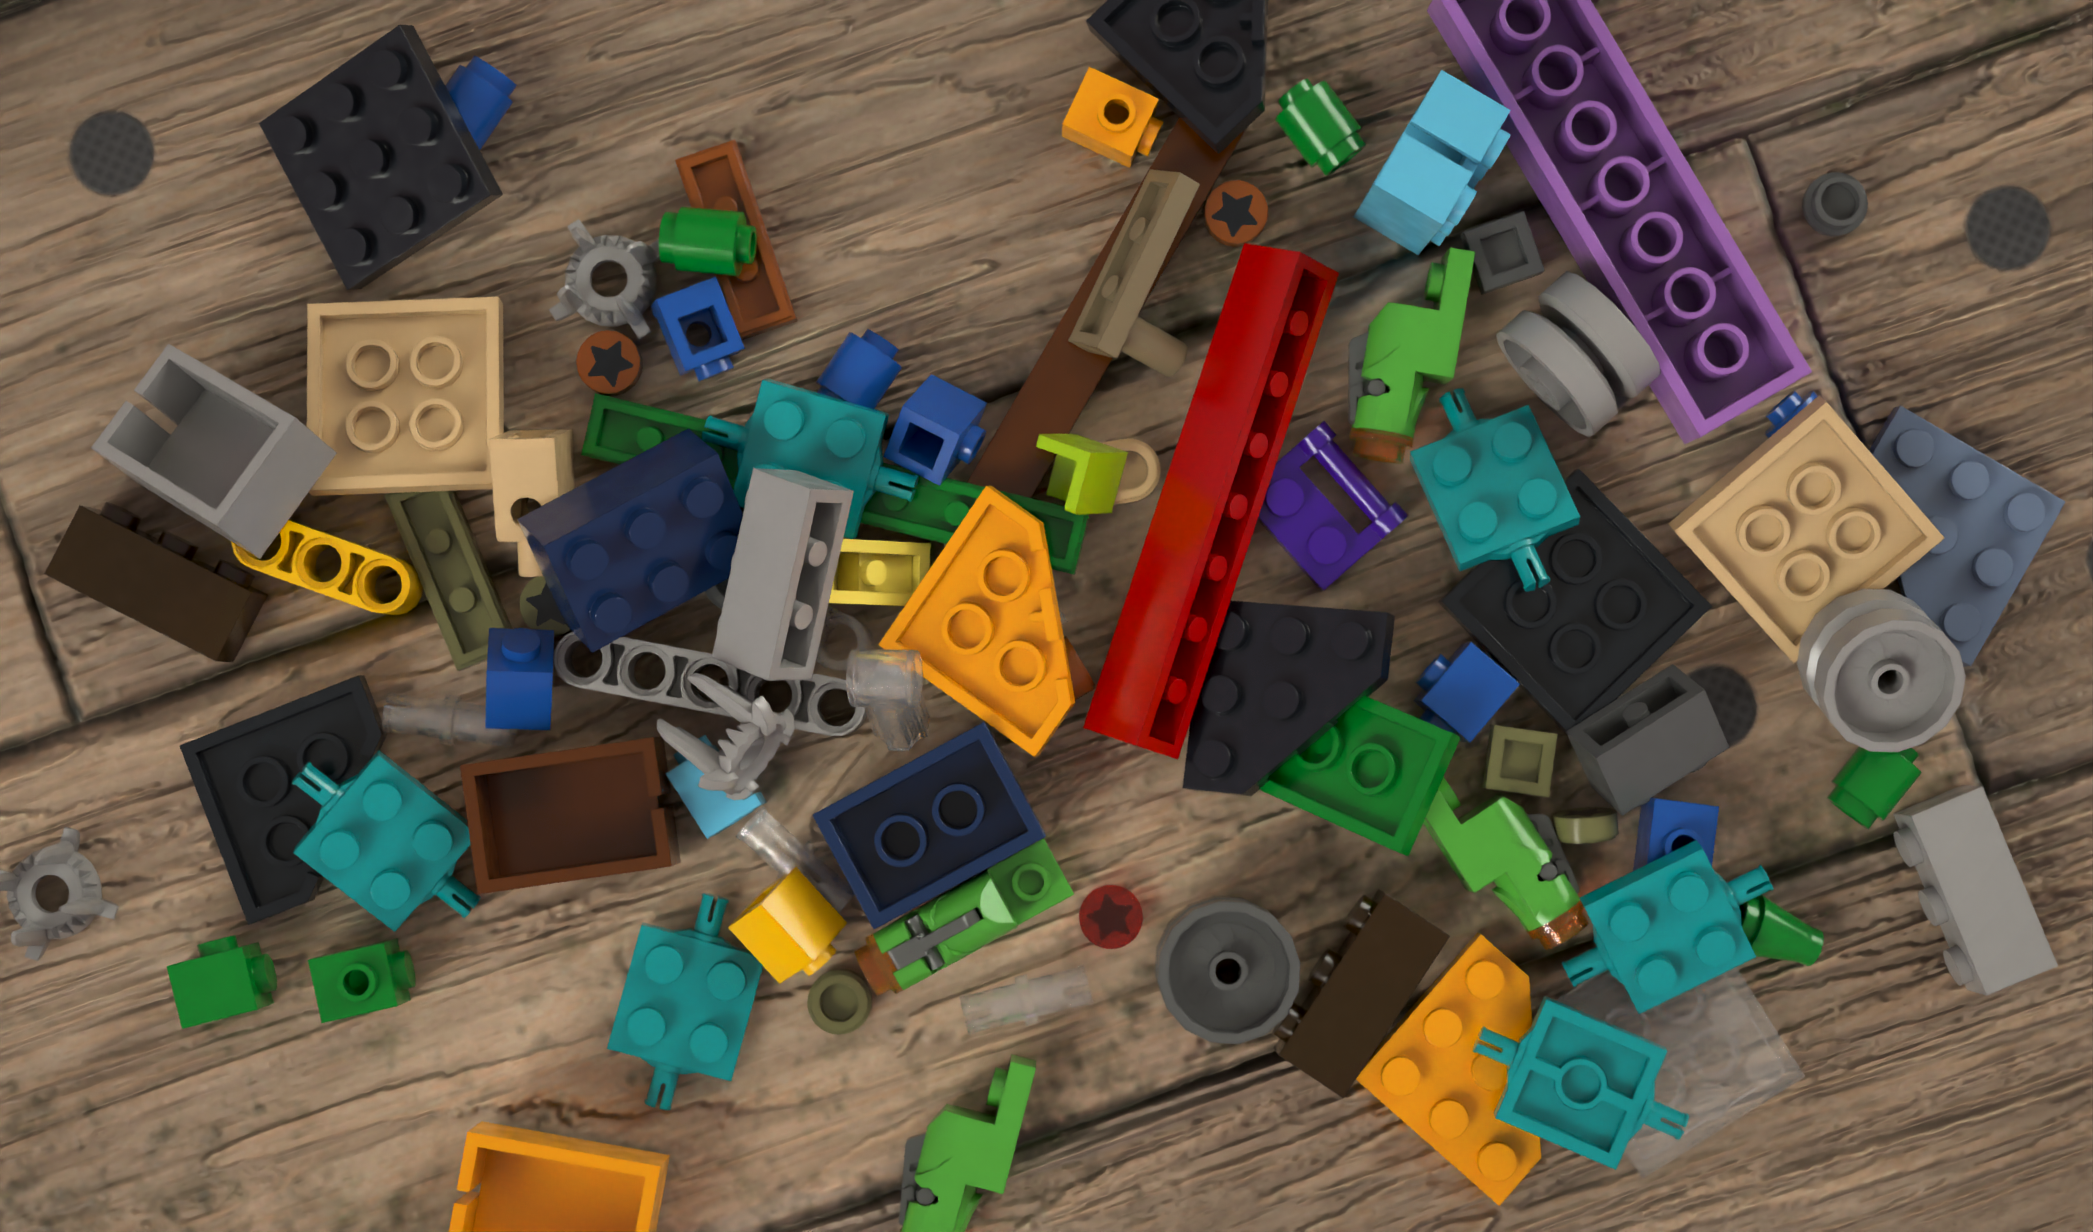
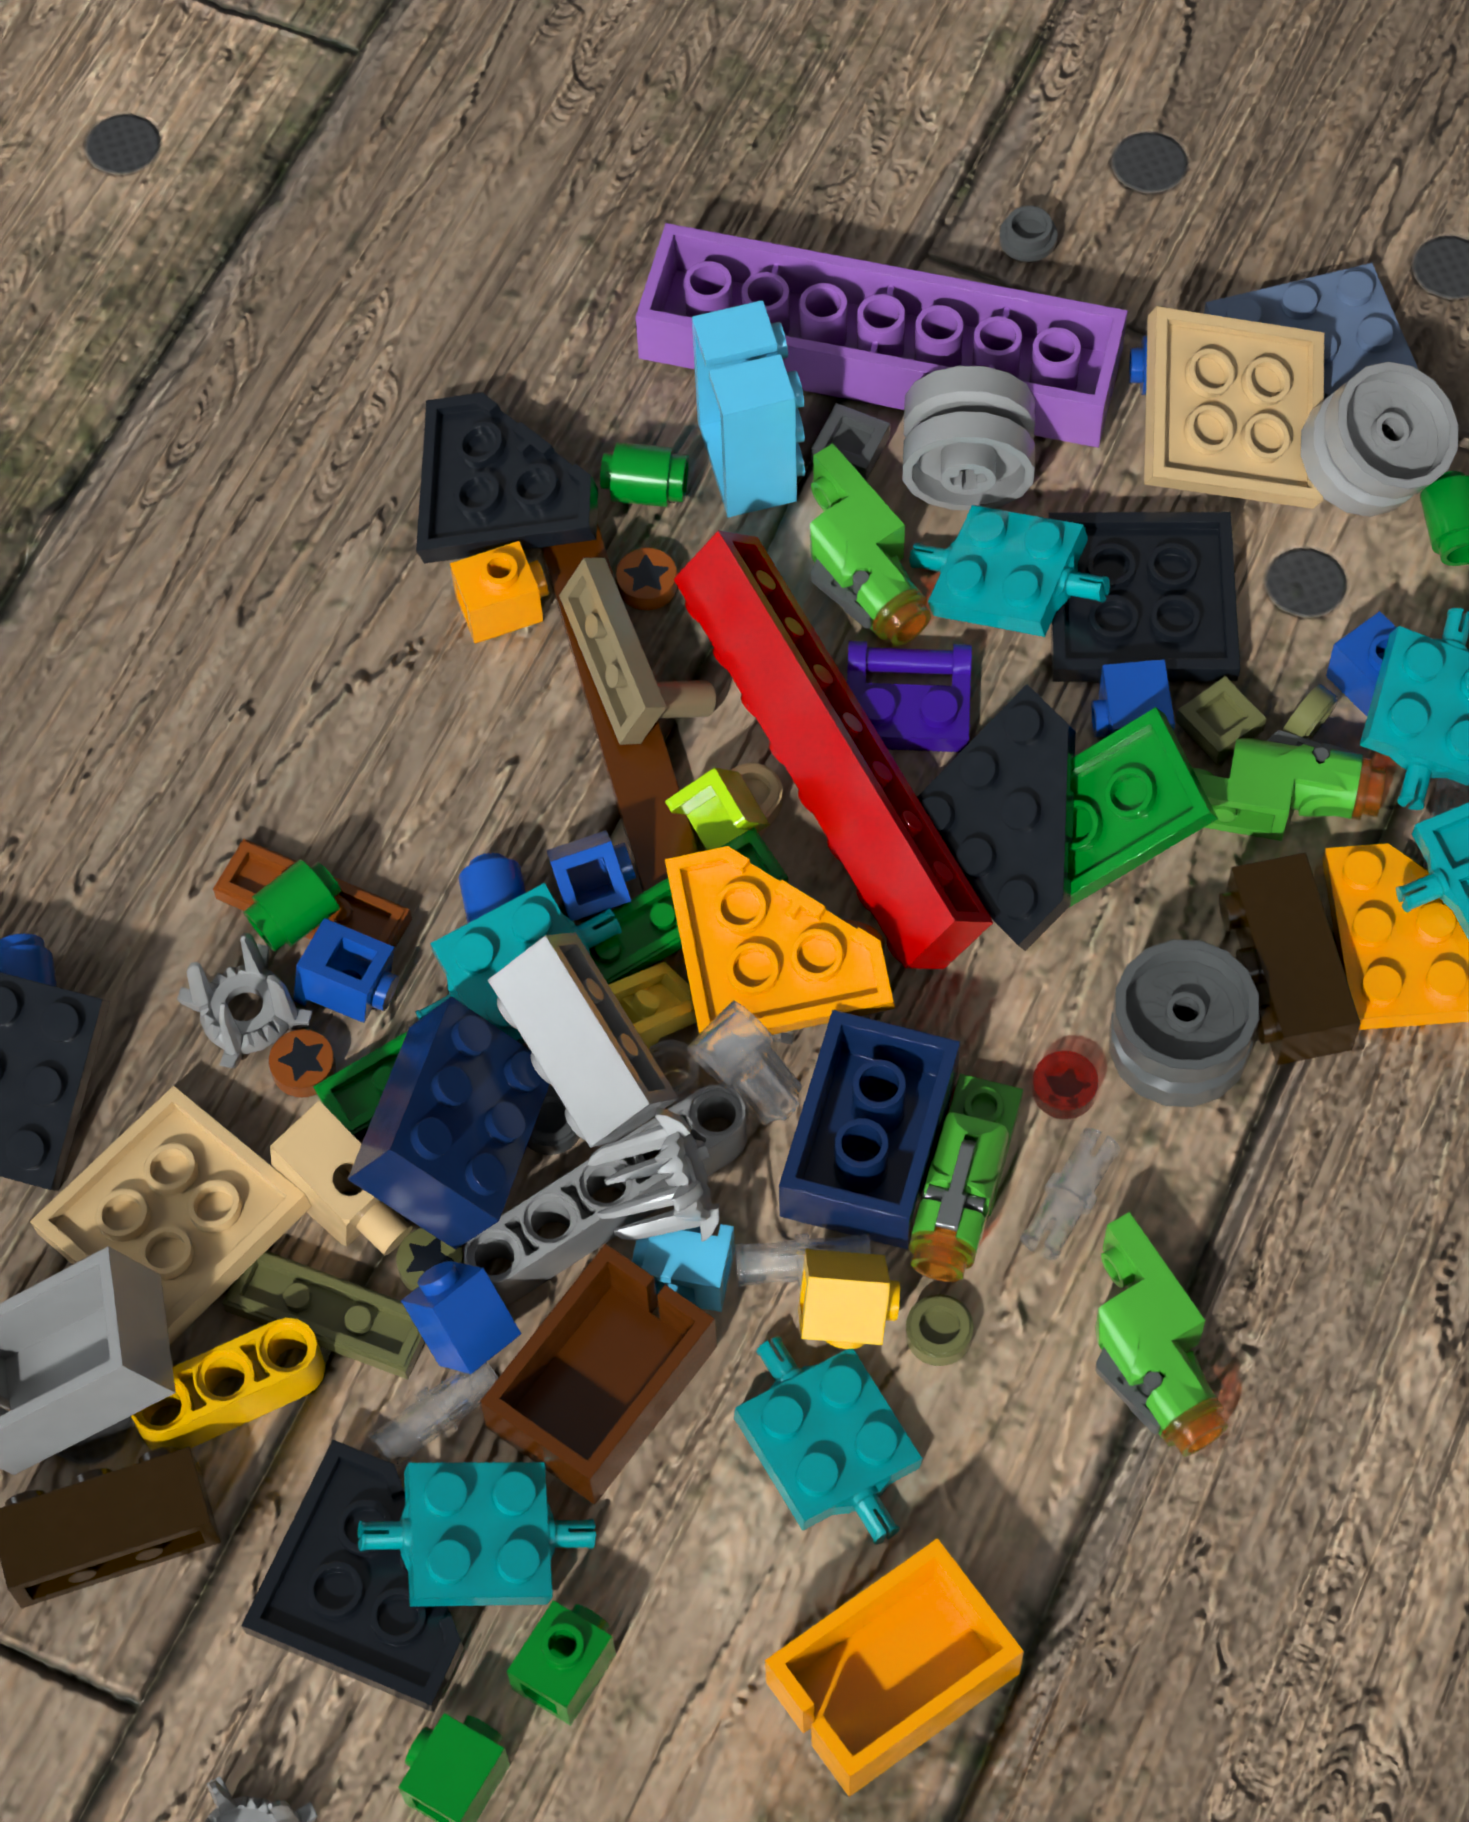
camera: 40 degrees left, 25 degrees down
(1648, 739) = (1286, 621): dark grey brick -> none

